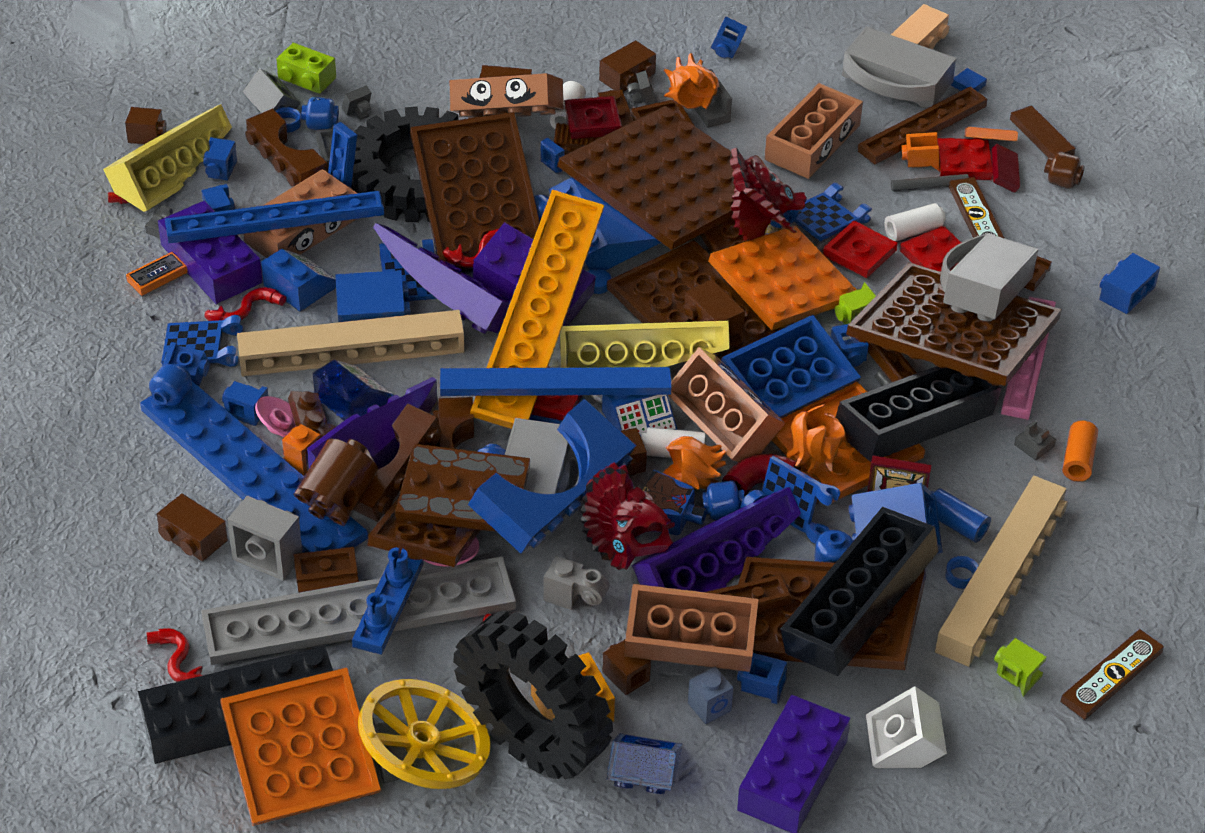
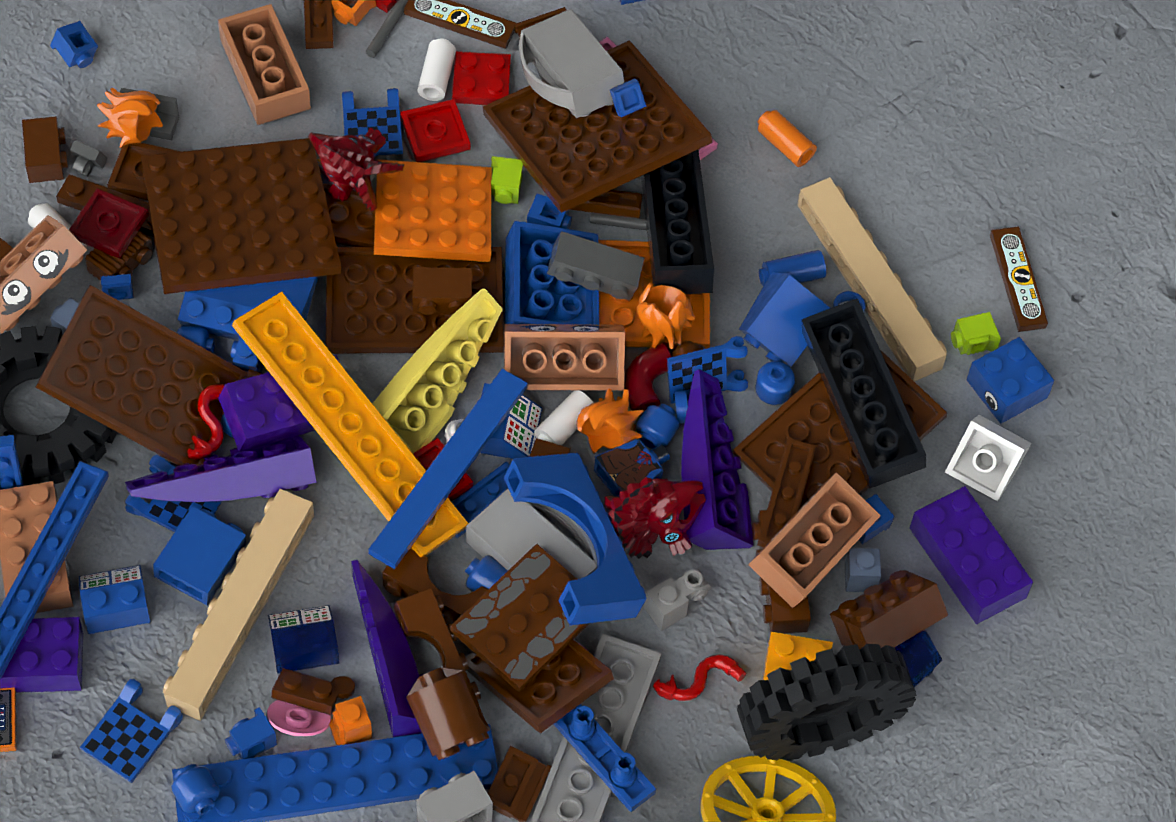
camera: 60 degrees left, 15 degrees up
(196, 360) = (154, 768): blue brick -> none
(267, 294) = (106, 639): red animal -> none
(676, 723) = (890, 611): none -> reddish brown piece
(818, 374) = (595, 266): none -> dark grey brick
(892, 473) = (741, 288): tile -> none
(989, 316) = (627, 97): none -> blue tile
(997, 710) = (1010, 380): none -> blue brick
(1035, 441) = (748, 161): dark grey tile -> none

